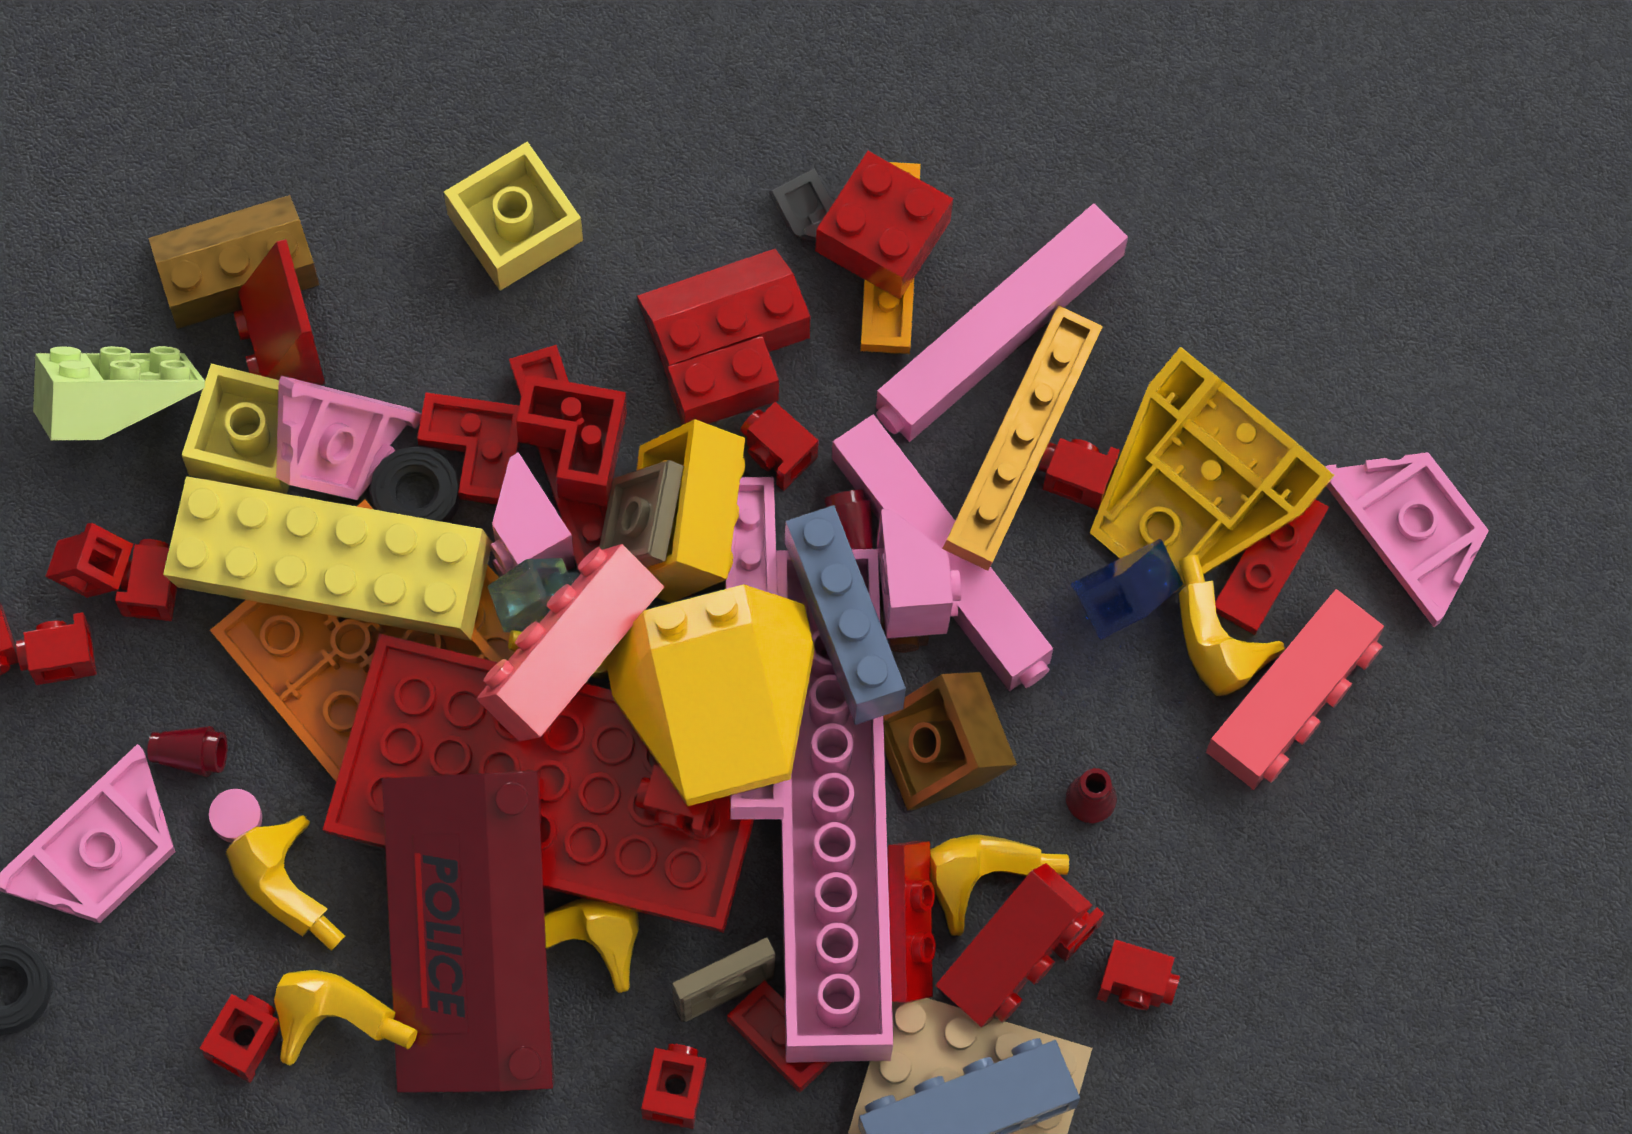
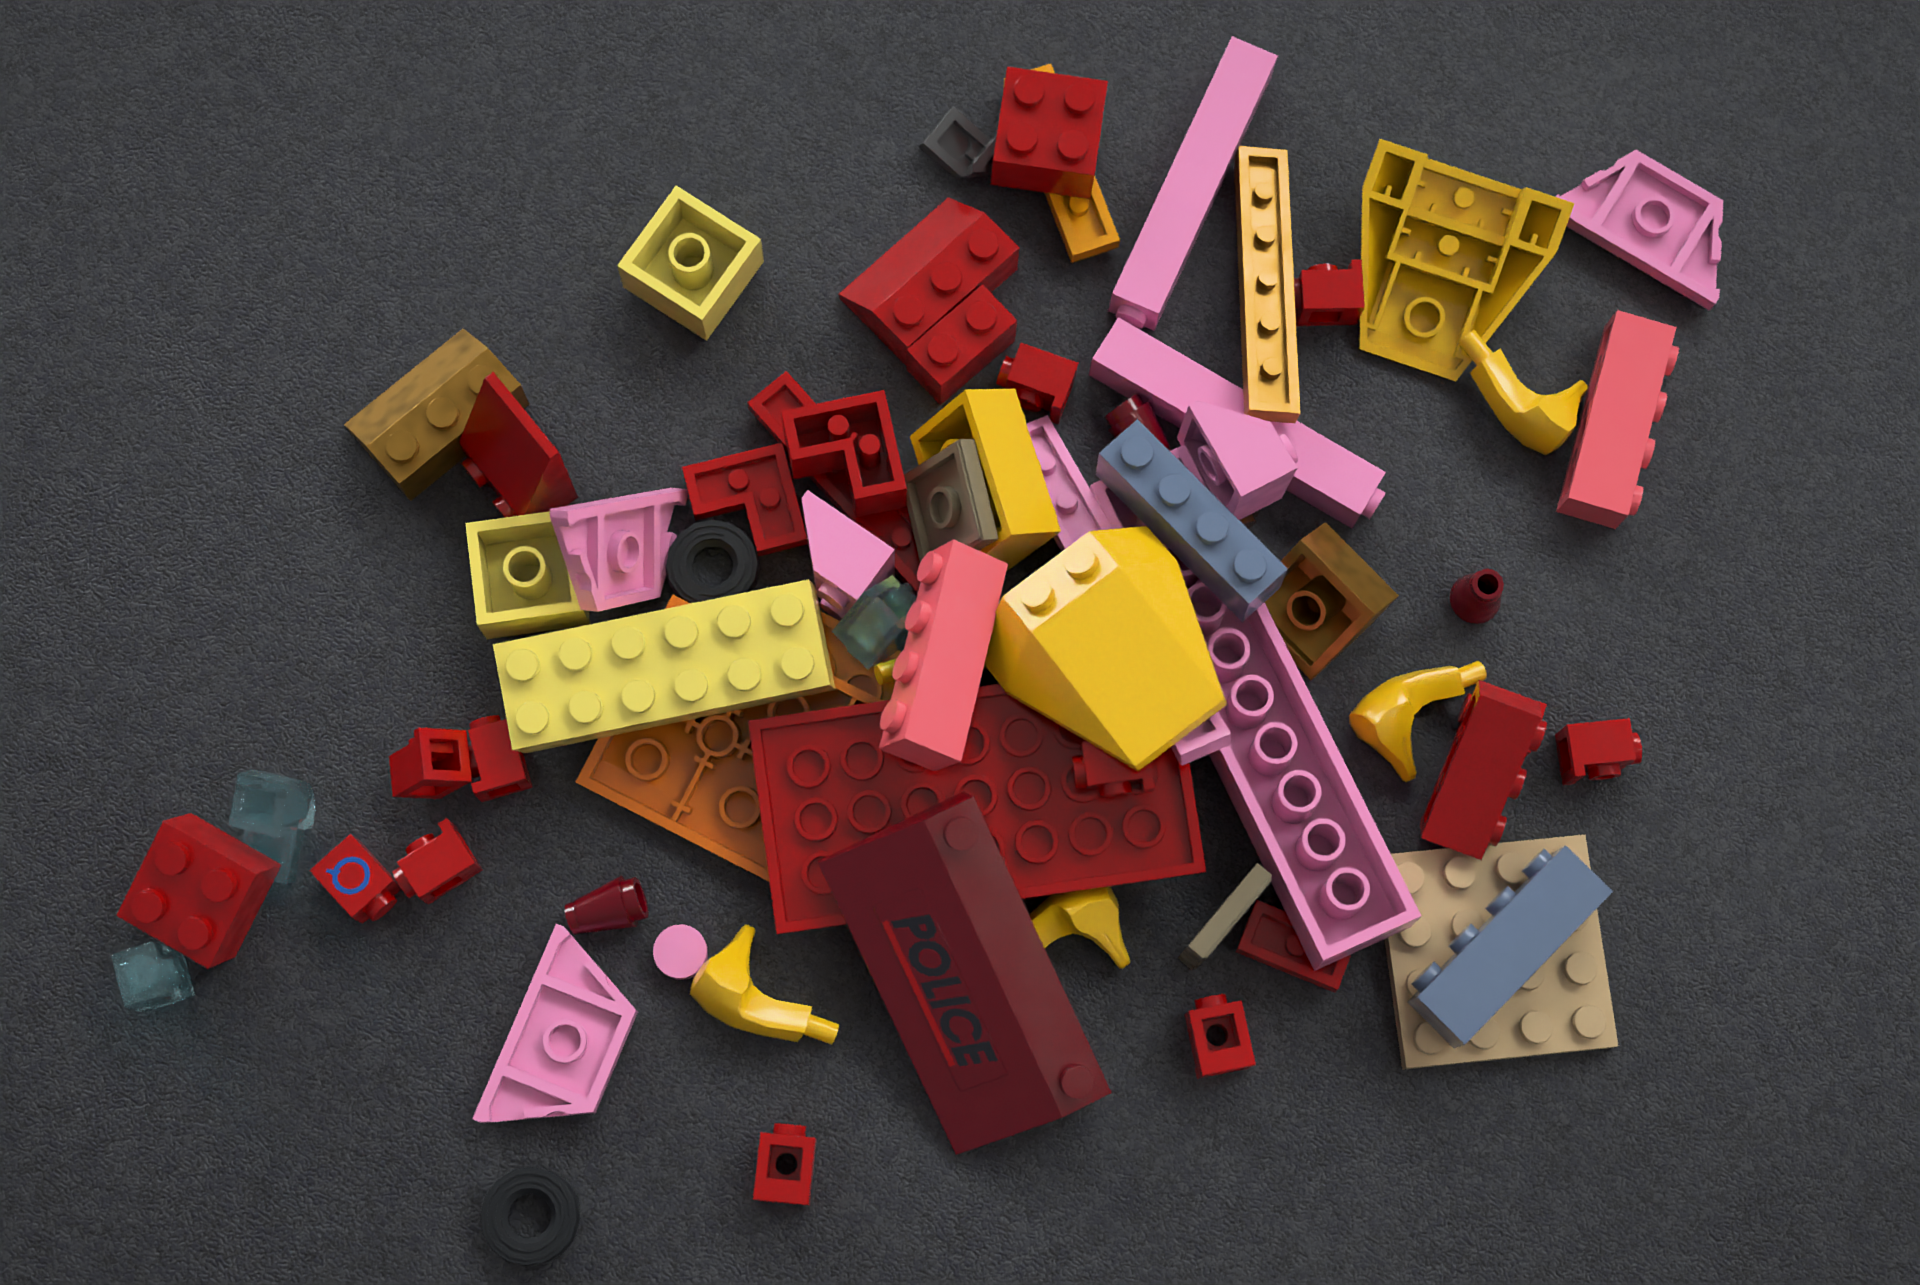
camera: 25 degrees left, 5 degrees up
(108, 390) = (374, 590): yellowish green slope -> none
(312, 995) = (839, 1096): yellow animal -> none
(911, 920) = (1368, 767): red plate -> none
(1127, 589) = (1424, 390): clear blue slope -> none
(1266, 569) = (1535, 324): red plate -> none

